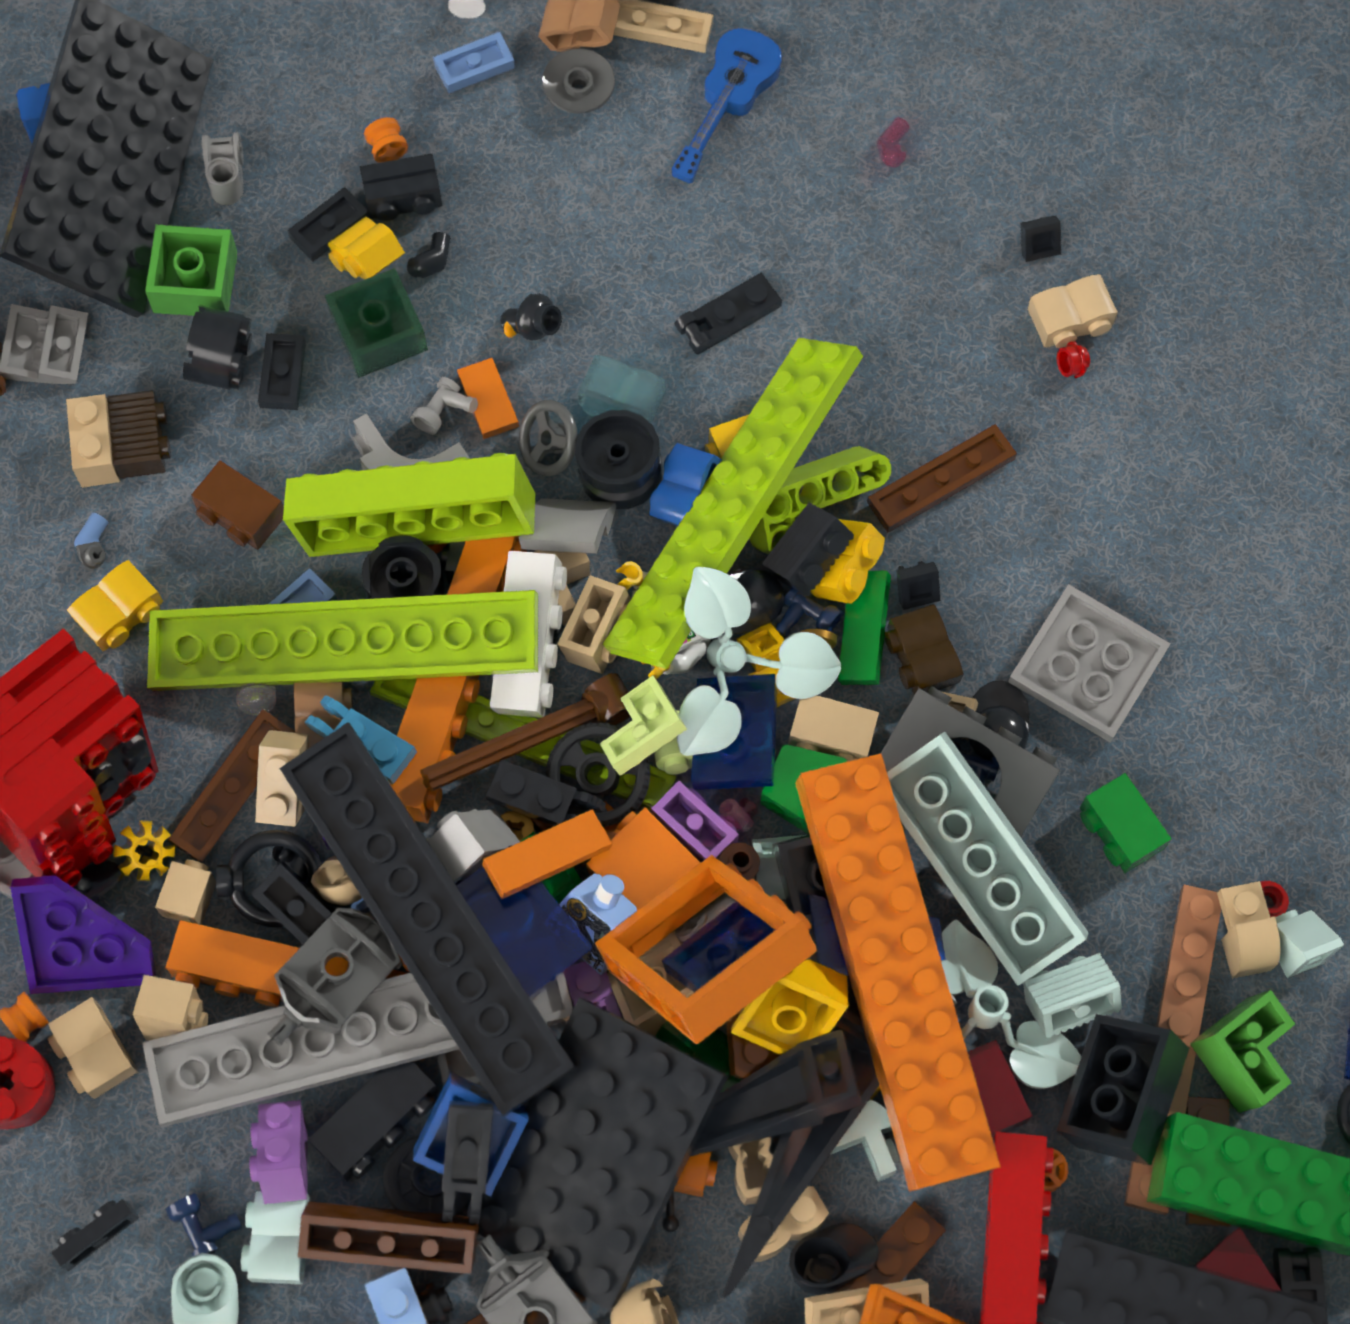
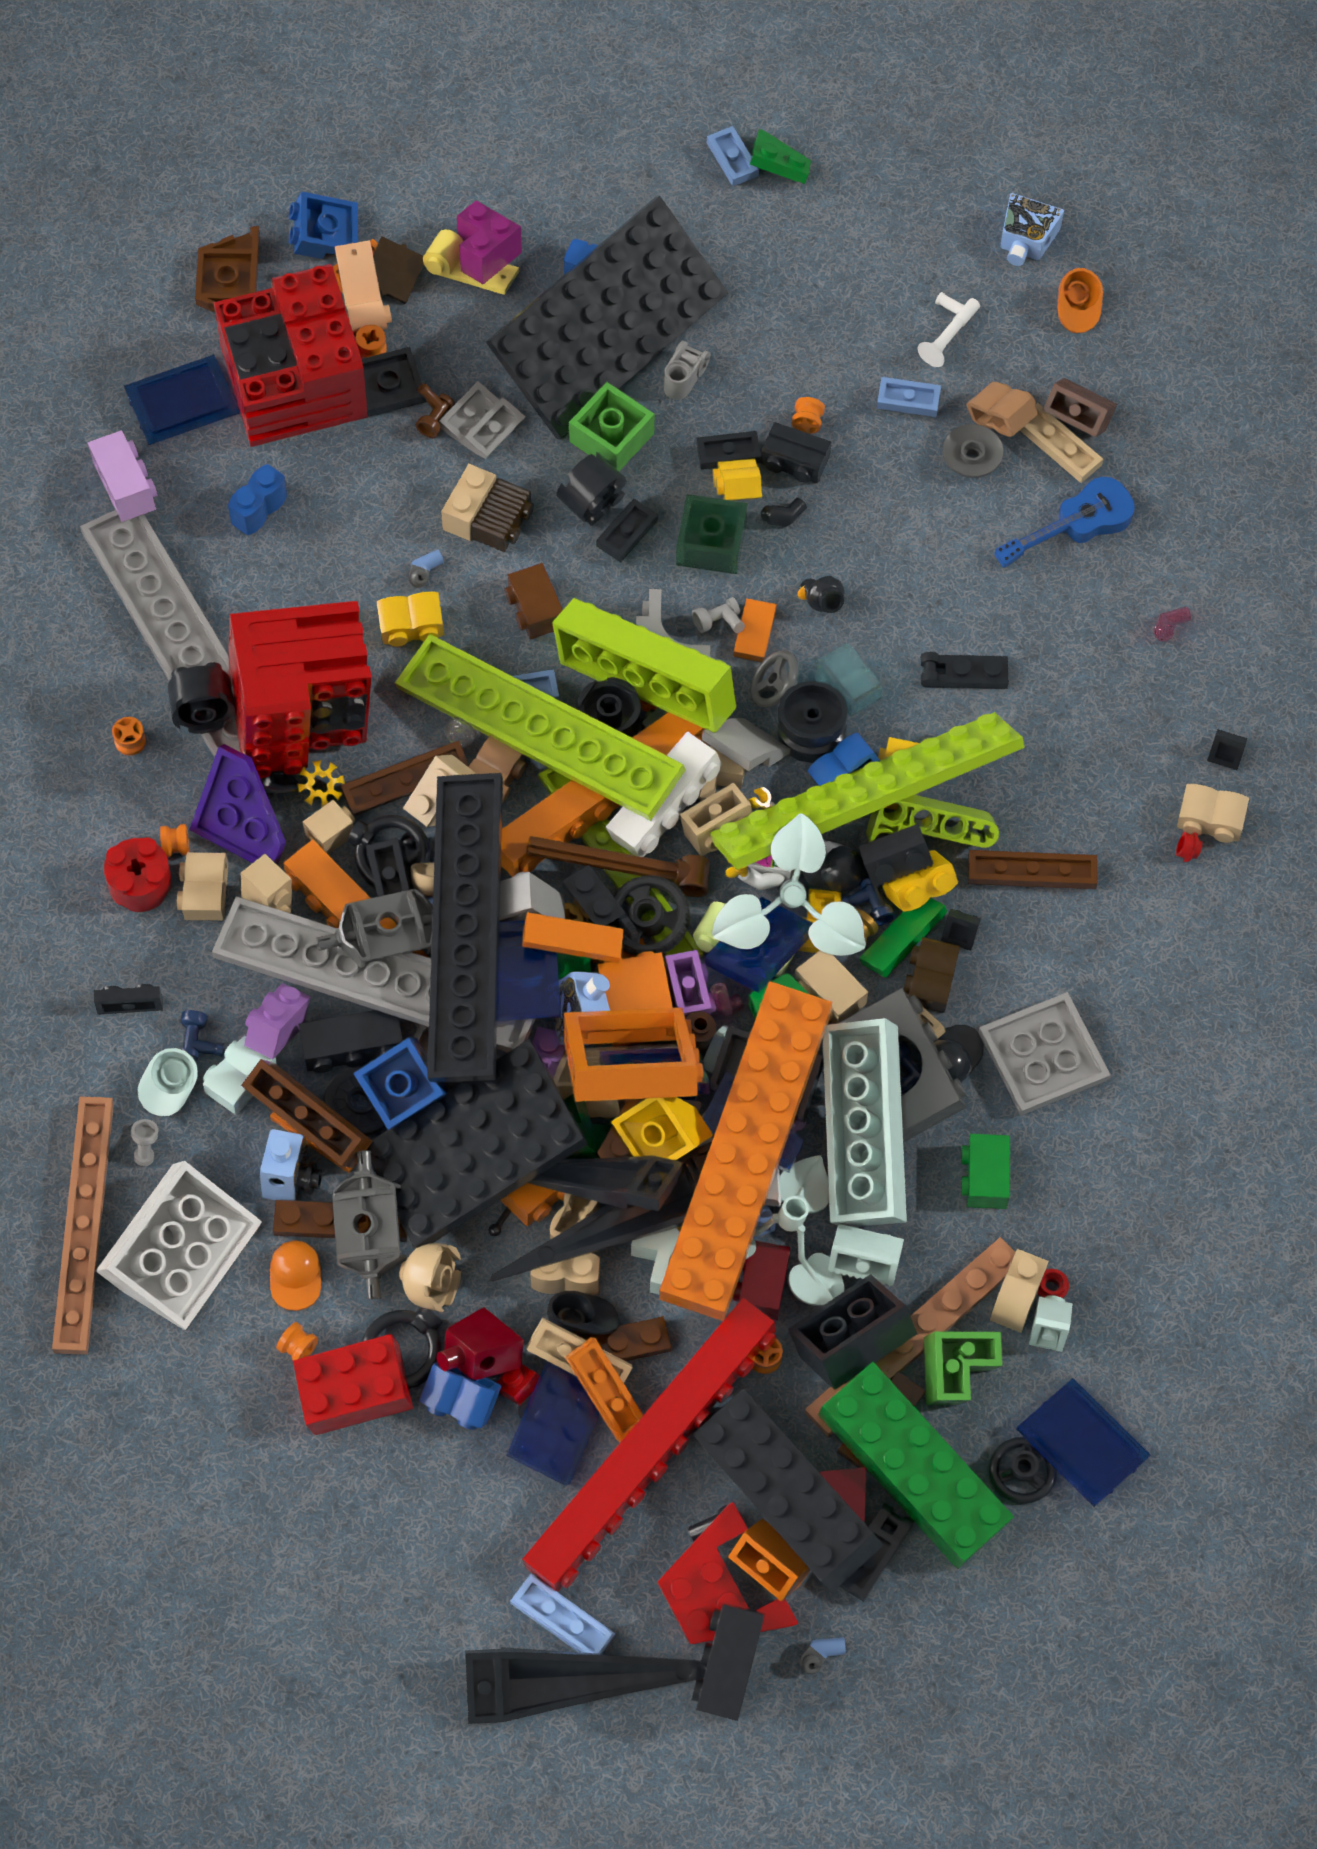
camera: 35 degrees right, 5 degrees down
(386, 748) = (515, 808): dark azure hinge -> none
(466, 1156) = (387, 1090): black hinge -> none
(652, 726) = (703, 901): yellowish green plate -> none

